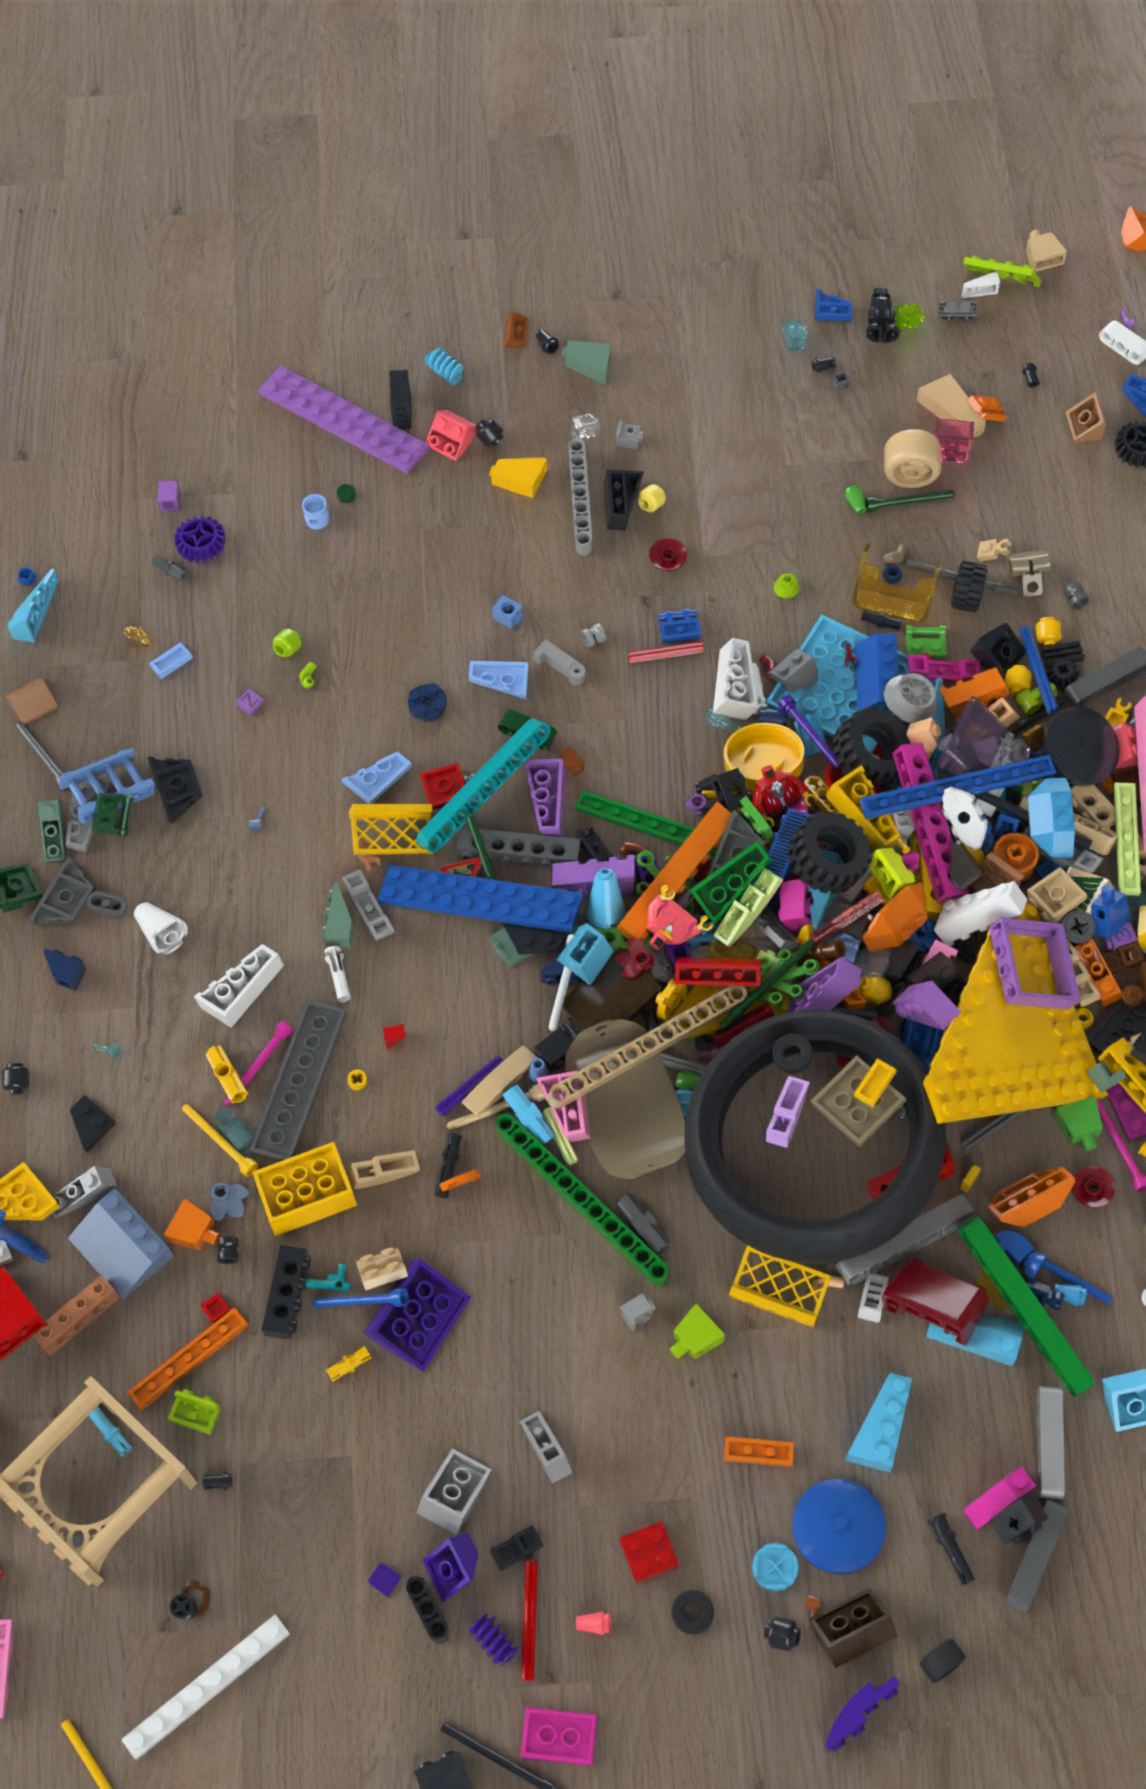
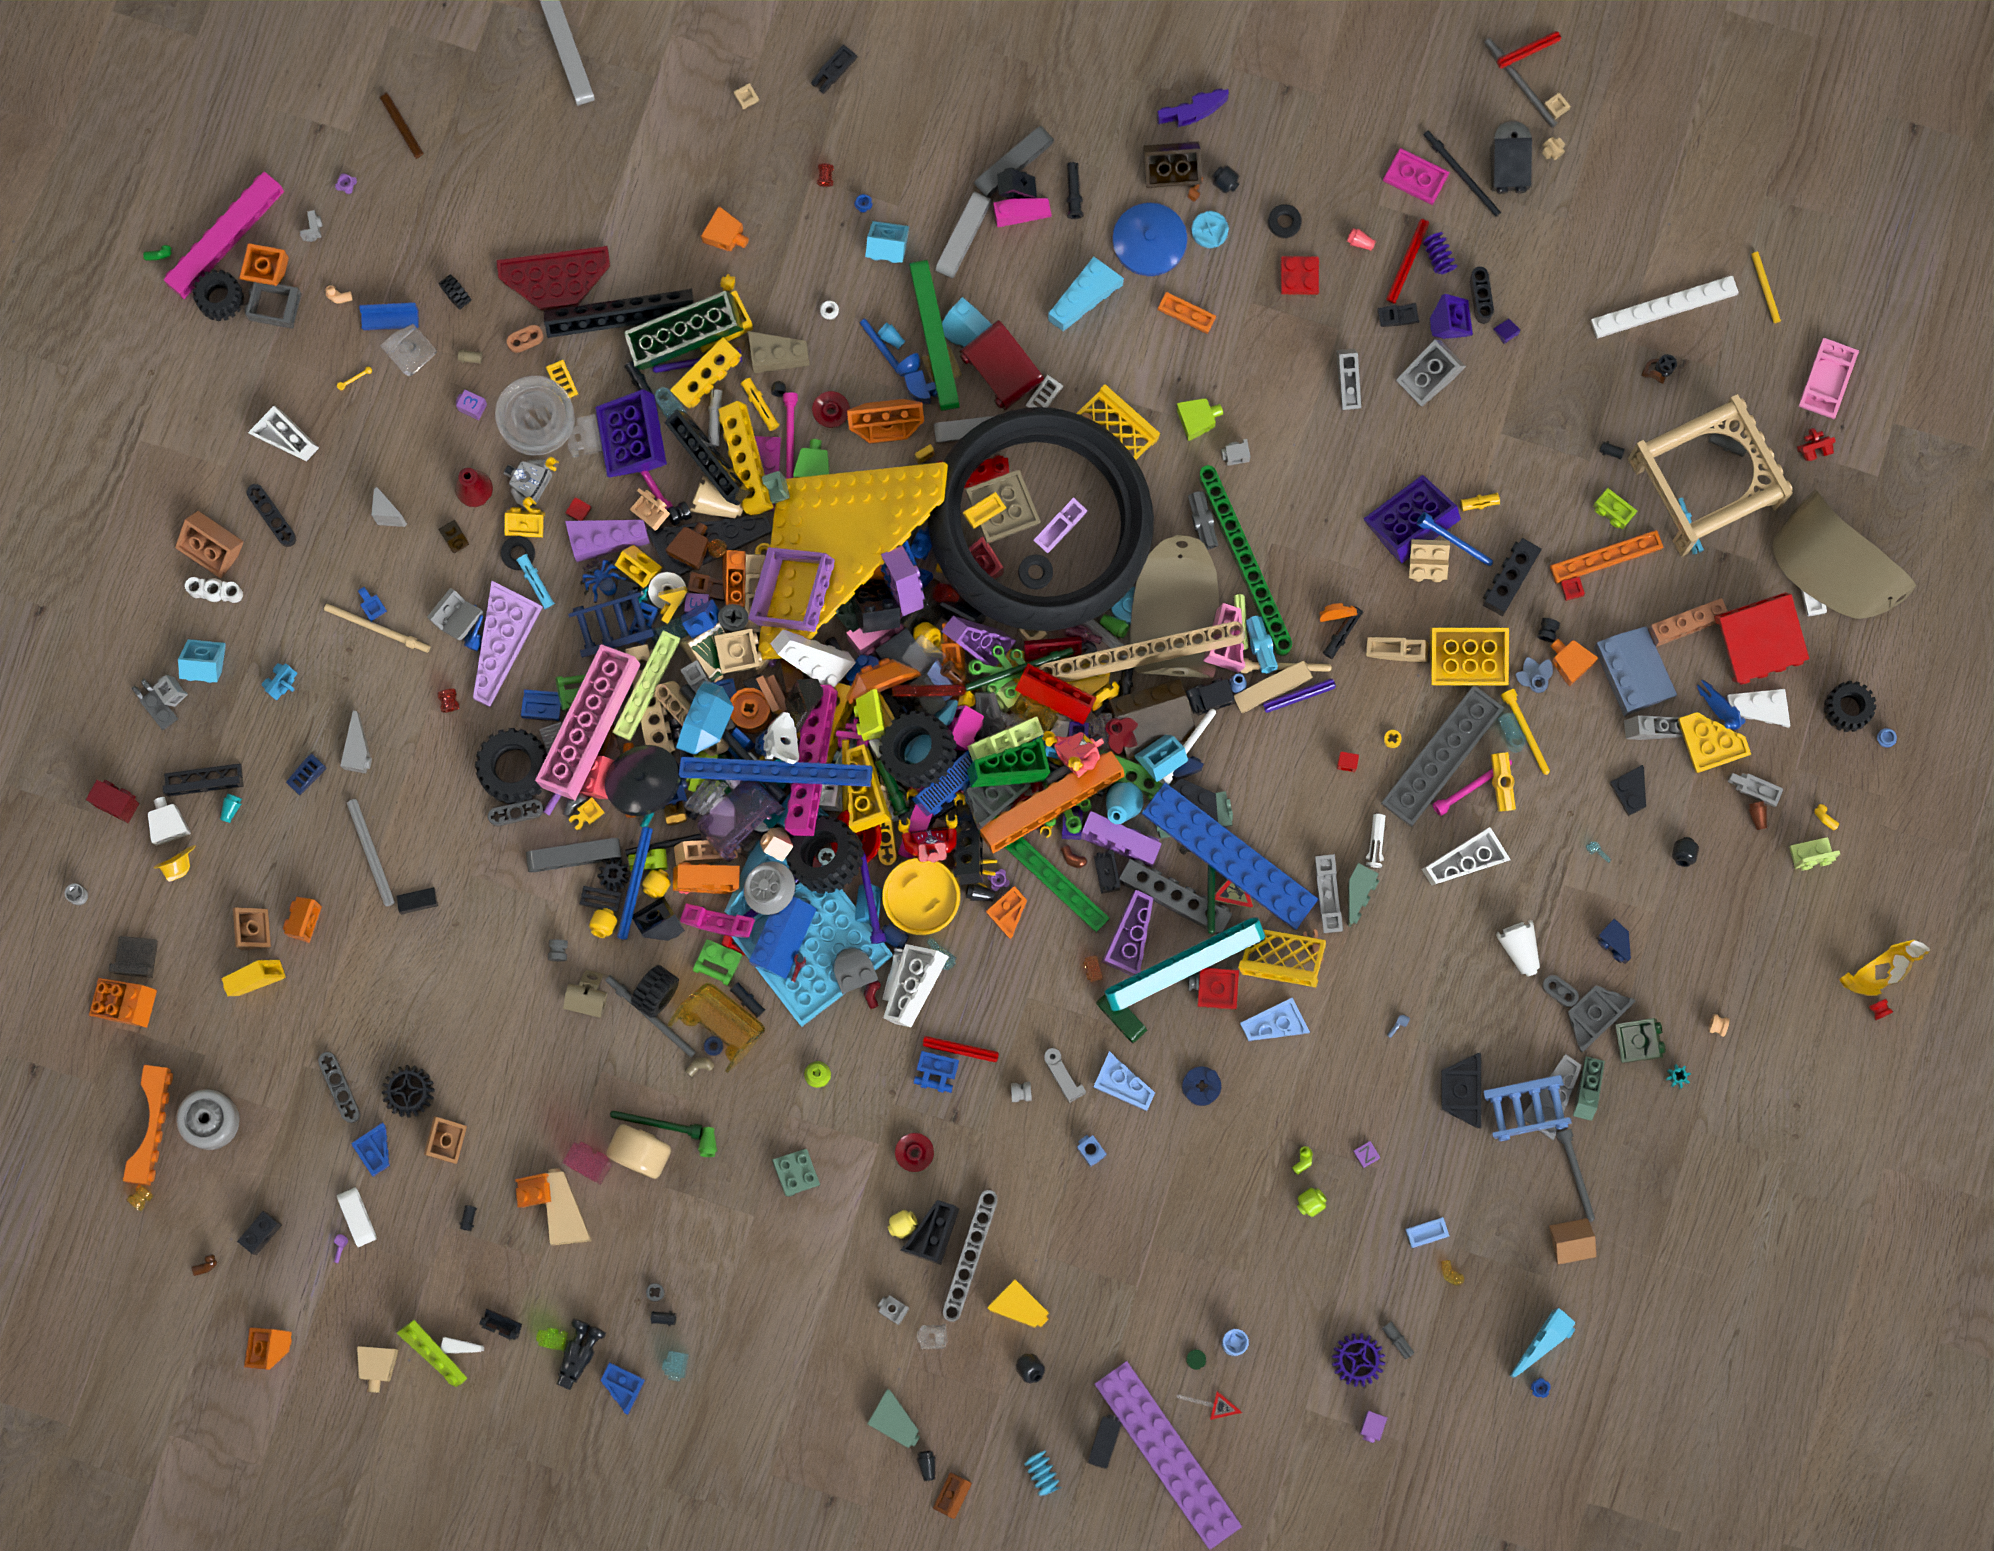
camera: 160 degrees left, 15 degrees up
(106, 813) = (1536, 1074): dark green plate -> none
(311, 467) = (1221, 1405): none -> piece
(332, 1281) = (1470, 574): teal hose -> none
(450, 434) = (1068, 1385): coral slope -> none
(676, 779) = (1007, 911): none -> orange wing
(758, 822) = (966, 821): bright green plate -> none
(766, 504) = (796, 1172): none -> sand green hinge
(942, 1660) = (1118, 116): black tyre -> none
(991, 548) = (609, 1031): tan plate -> none
(1044, 1295) = (917, 345): dark blue plate -> none

